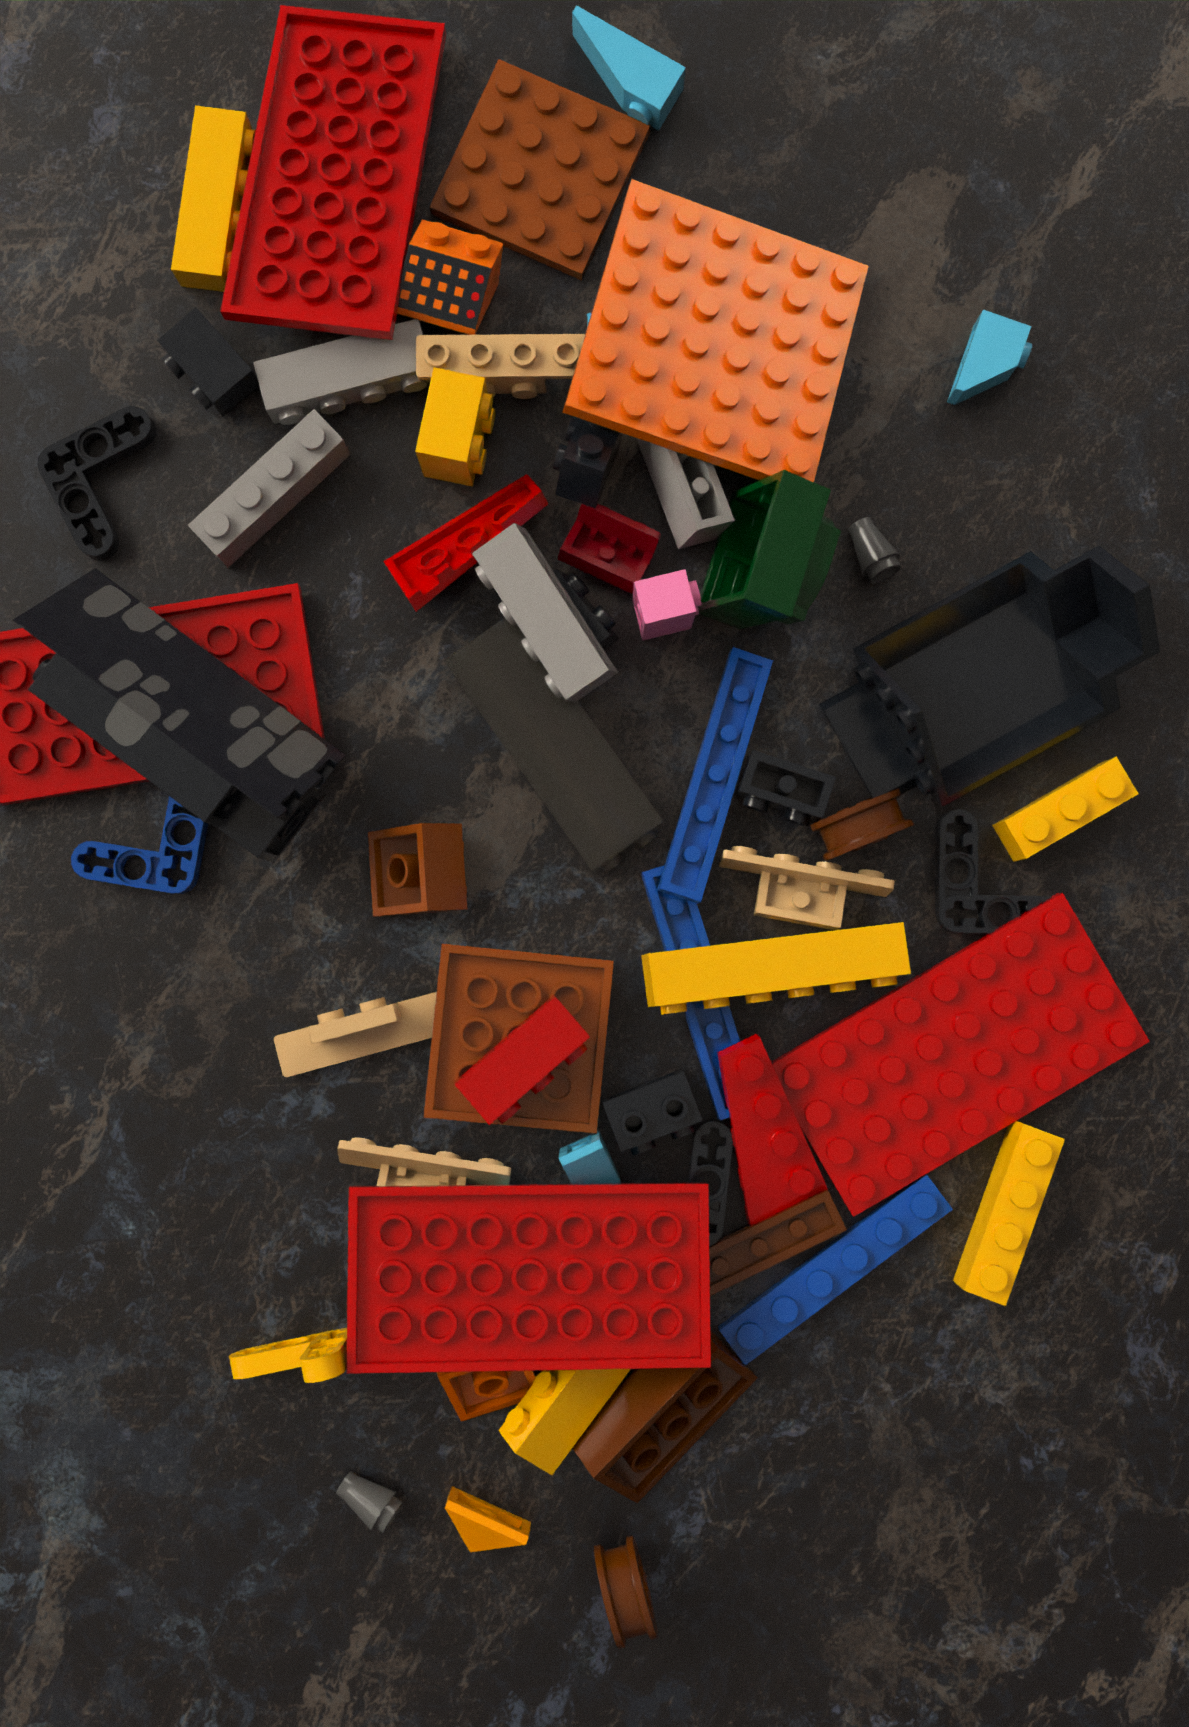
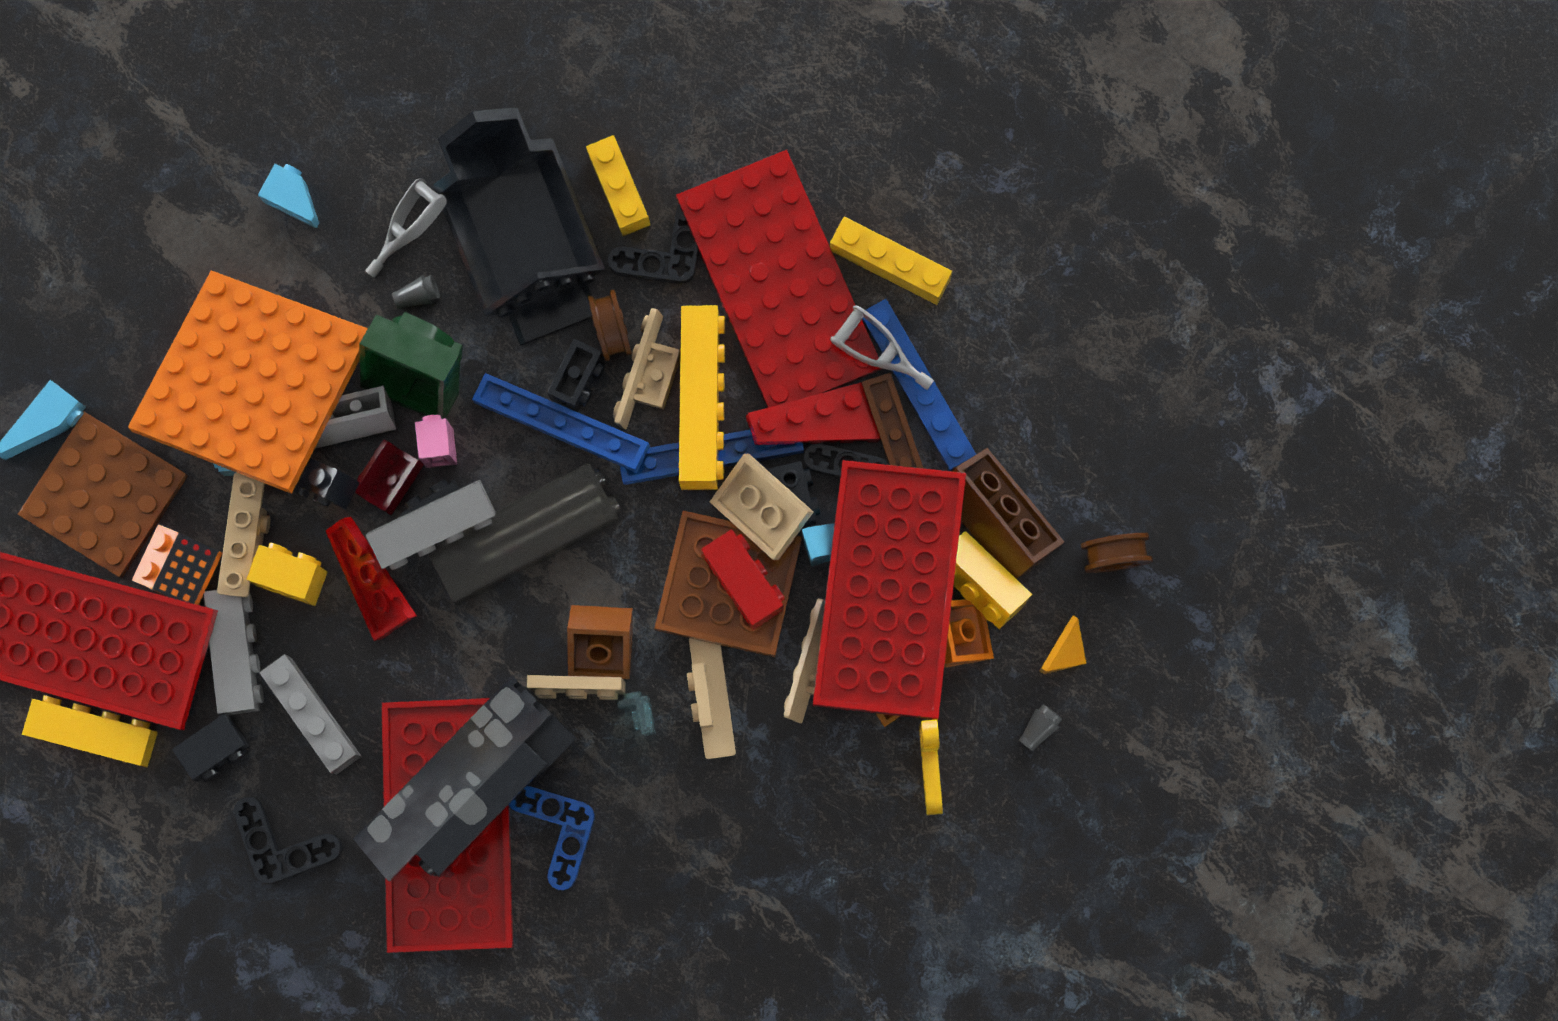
camera: 75 degrees left, 5 degrees down
(319, 943) = (643, 717): none -> clear light blue bracket
(346, 845) = (576, 686): none -> tan plate
(628, 1074) = (761, 506): none -> tan plate
(878, 1230) = (889, 353): none -> light grey piece
(950, 514) = (397, 235): none -> light grey piece

